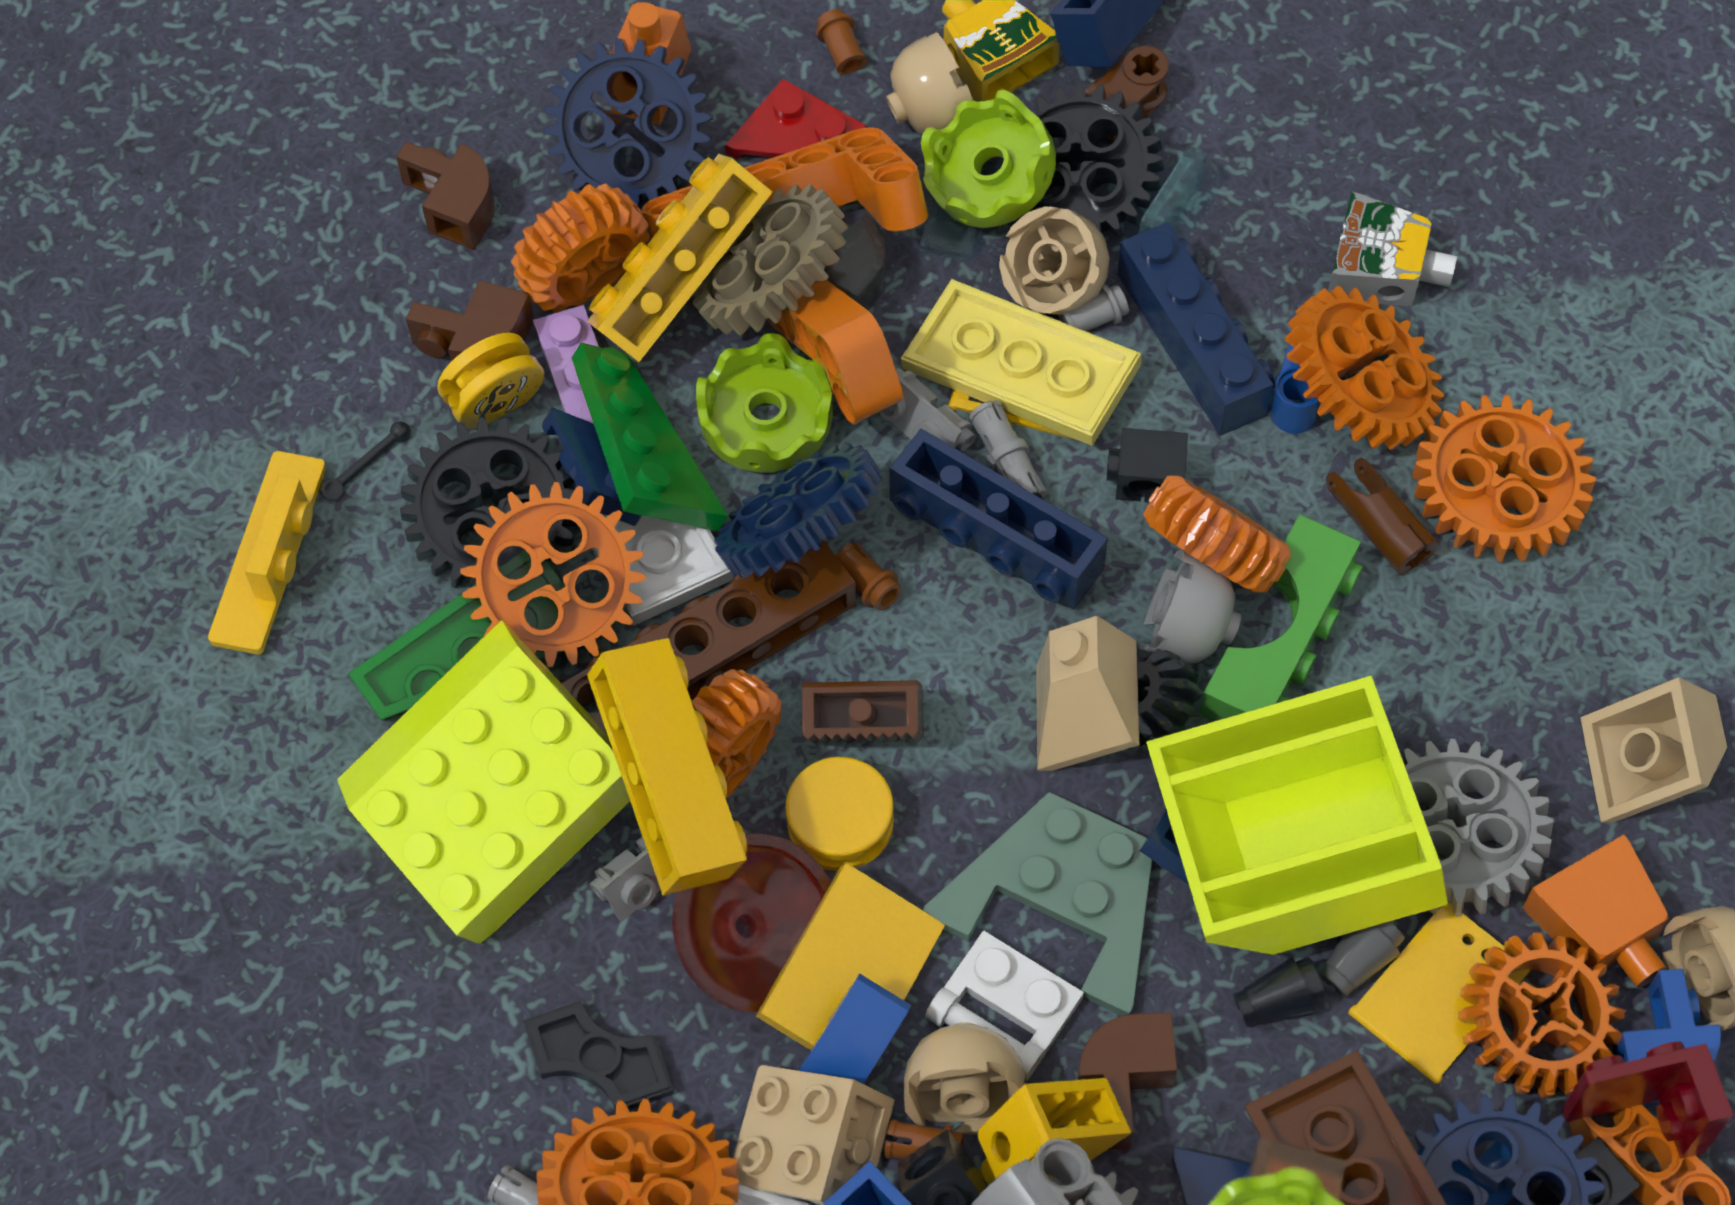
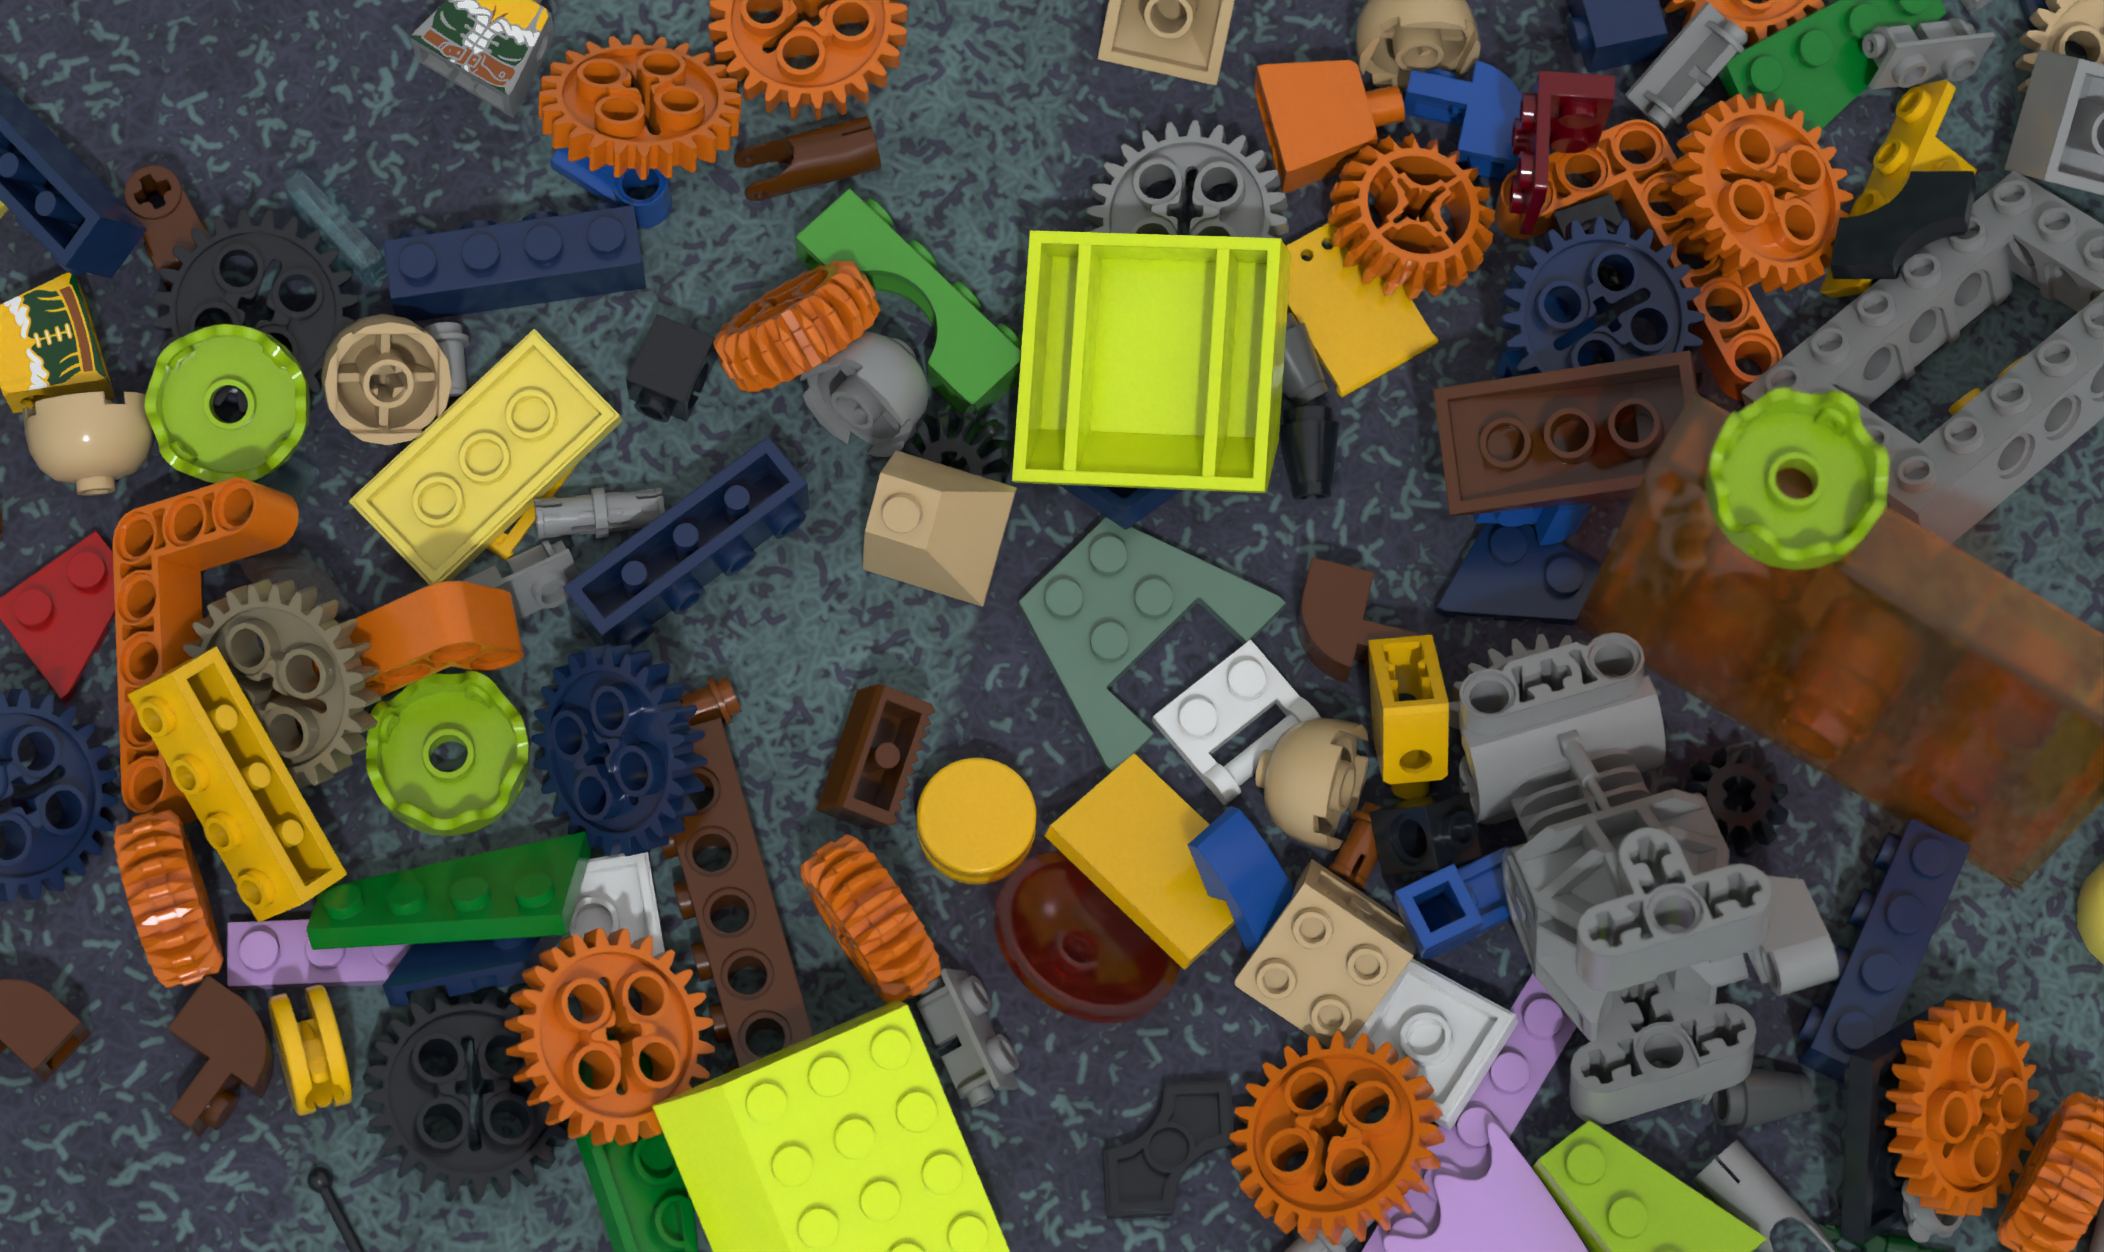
camera: 80 degrees left, 10 degrees up
(667, 766) = (929, 959): yellow brick -> none

